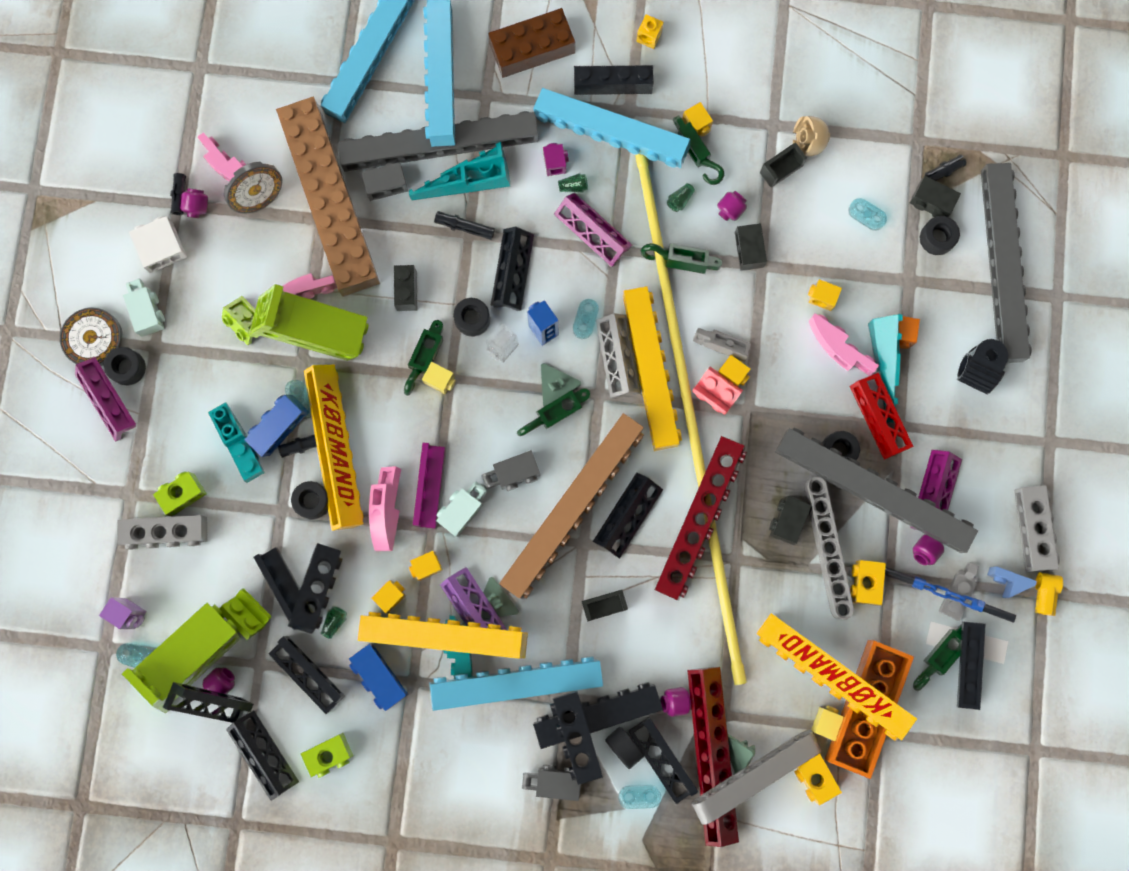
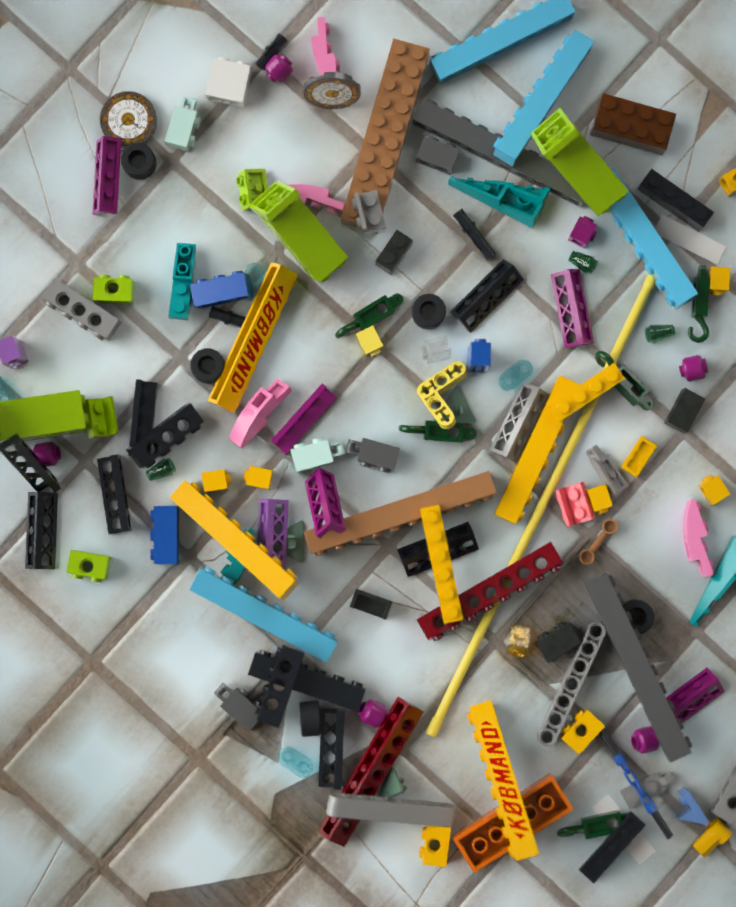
camera: 35 degrees right, 5 degrees up
(358, 265) = (369, 211): none -> light grey bracket
(501, 540) = (328, 499): none -> magenta fence
(509, 96) = (579, 162): none -> lime brick
(529, 383) = (434, 395): none -> light yellow beam
(641, 524) = (441, 563): none -> yellow plate
(650, 104) = (690, 239): none -> white sticker
(657, 287) = (587, 392): none -> yellow plate
(740, 312) = (638, 456): none -> yellow plate
(756, 544) = (518, 640): none -> clear yellow bracket
(760, 391) = (609, 528): none -> medium nougat bar
(827, 722) = (473, 810): light yellow brick -> none
(877, 417) = (680, 613): red fence -> none

